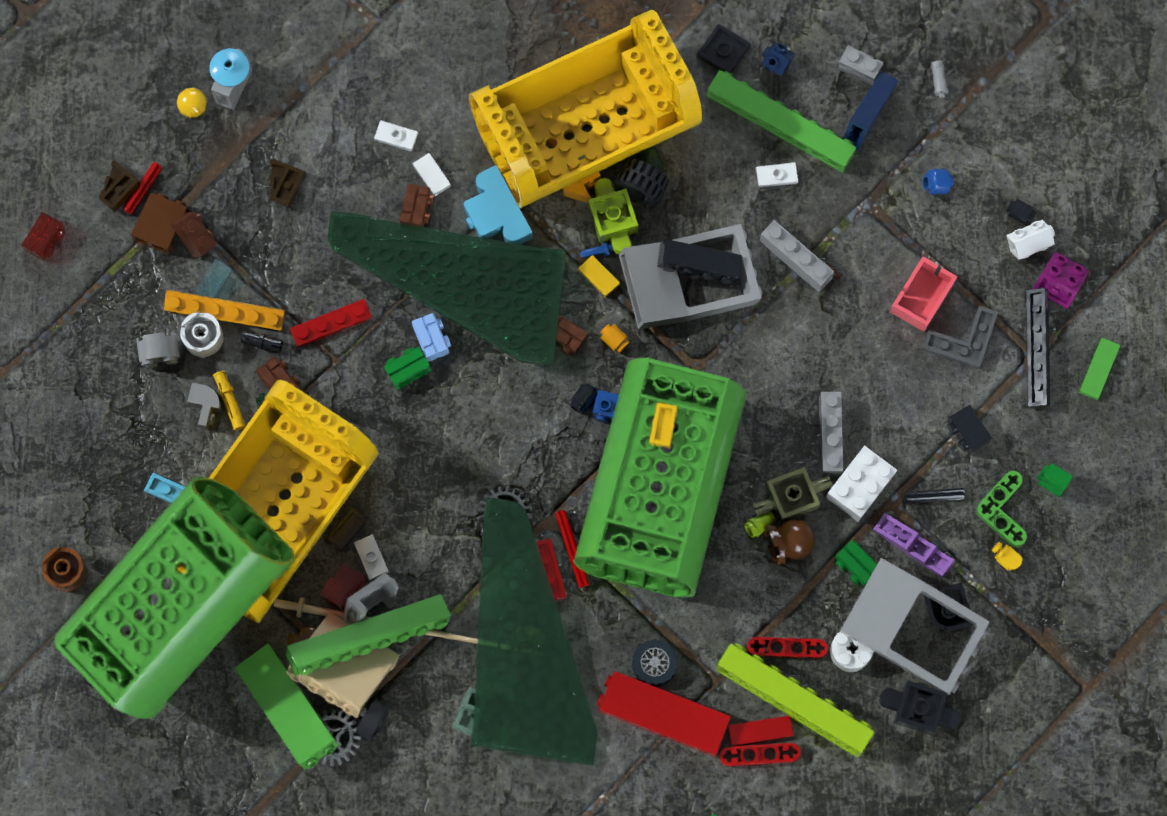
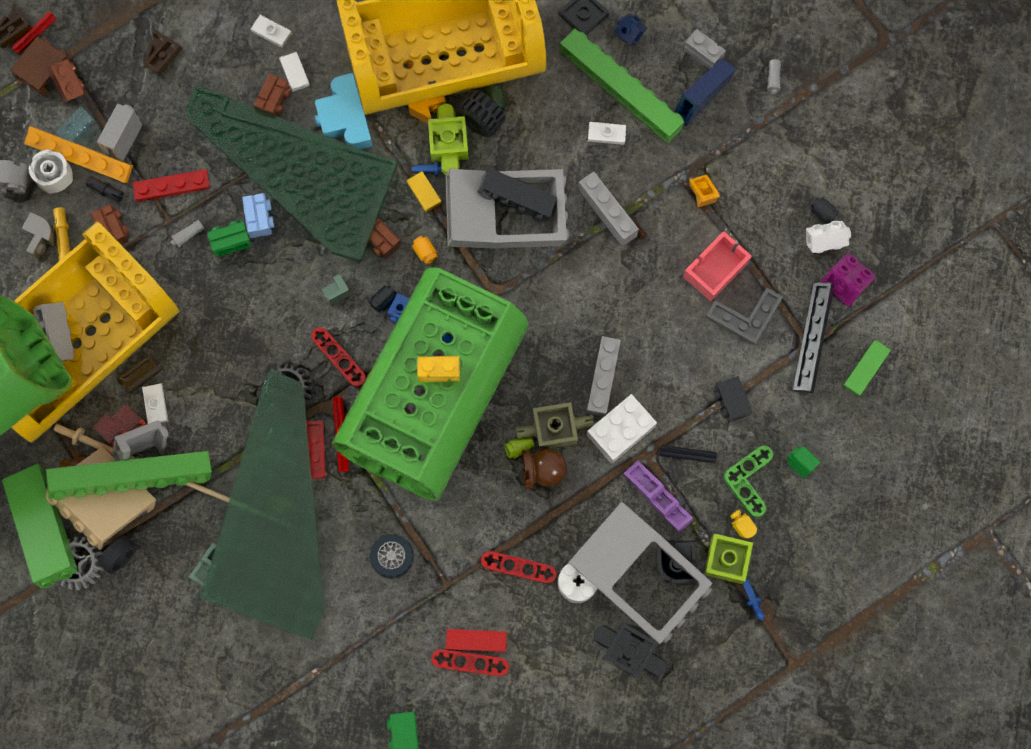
camera: 10 degrees right, 0 degrees up
(251, 490) = (54, 324): none -> light grey brick
(265, 278) = (120, 132): none -> light grey brick
(360, 371) = (187, 233): none -> light grey piece
(532, 399) = (336, 291): none -> sand green panel
(552, 467) = (338, 357): none -> red beam
(663, 425) = (439, 333): yellow tile -> none
(663, 713) = (388, 605): red brick -> none
(672, 461) = (438, 369): none -> yellow brick
(794, 700) = (512, 618): lime brick -> none
(856, 563) = (599, 500): green brick -> none
(892, 215) = (704, 190): none -> light orange slope
(937, 181) = (753, 167): blue head -> none
(999, 594) = (728, 558): none -> lime brick
(1034, 632) = (753, 599): none -> blue piece

